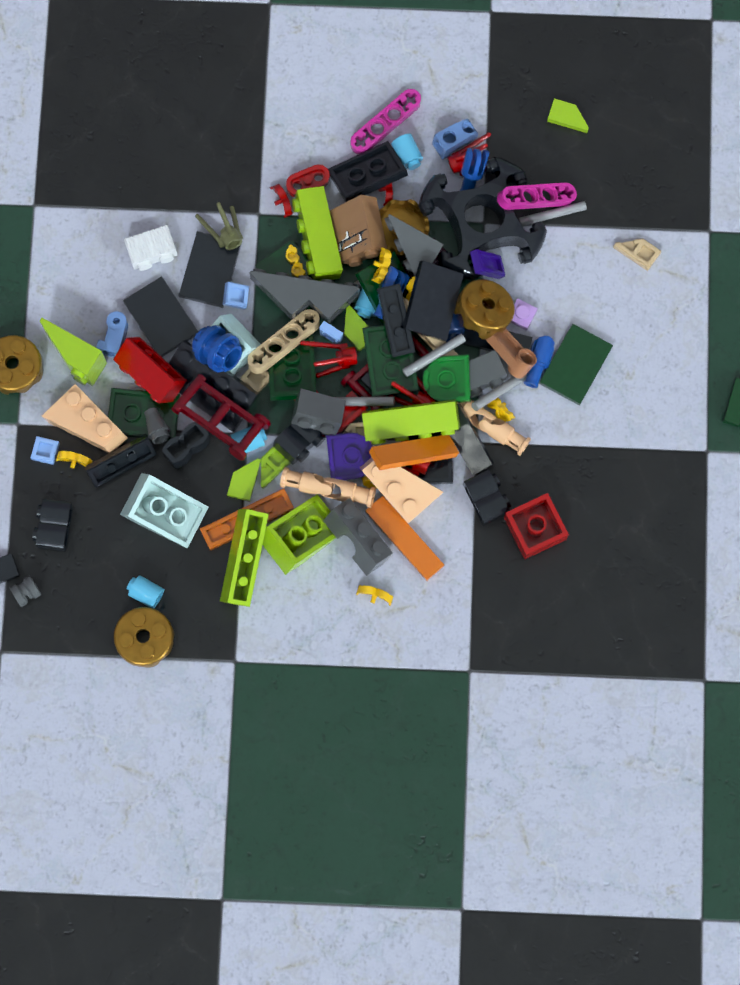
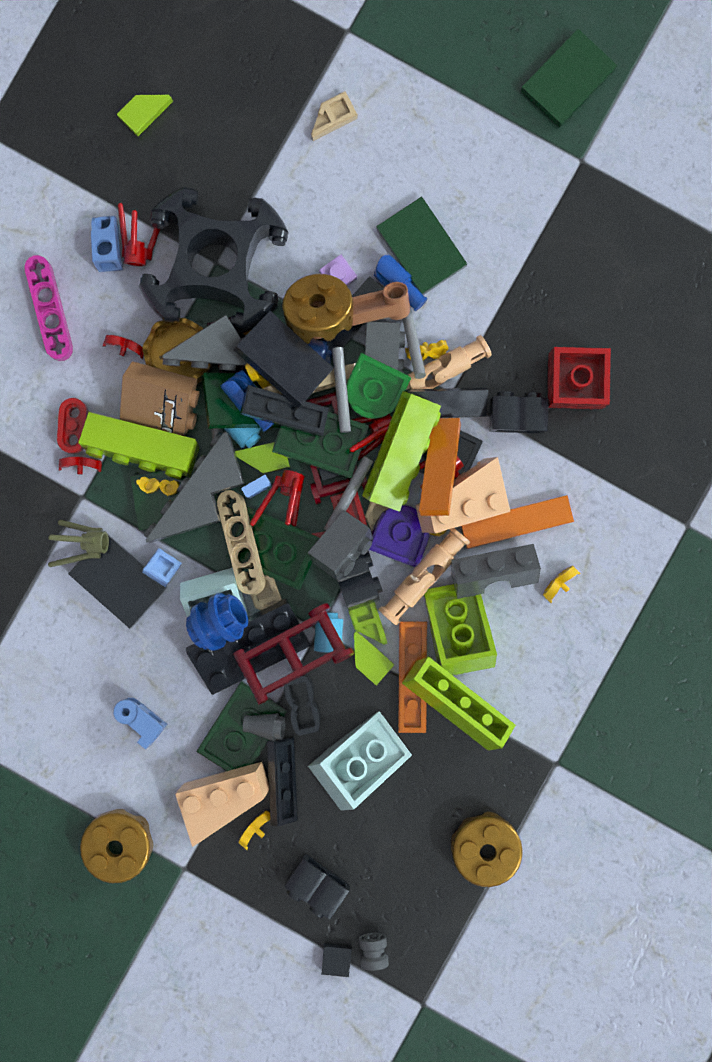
camera: 65 degrees left, 10 degrees up
(45, 450) = (228, 854): light blue tile -> none
(80, 357) = (142, 777): lime slope -> none
(145, 591) = (438, 824): medium azure brick -> none
(149, 370) = (199, 703): red brick -> none
(151, 248) = (61, 633): white brick -> none
(160, 316) = (144, 659): black tile -> none
(367, 171) = (96, 356): black tile -> none
(383, 264) = (215, 393): yellow piece -> none
(407, 151) = (95, 302): medium azure brick -> none
(473, 167) = (153, 239): blue arm -> none
(487, 264) = (267, 280): dark purple tile -> none
(538, 199) = (219, 187): dark pink beam -> none
(553, 213) = (244, 182): light grey bar -> none

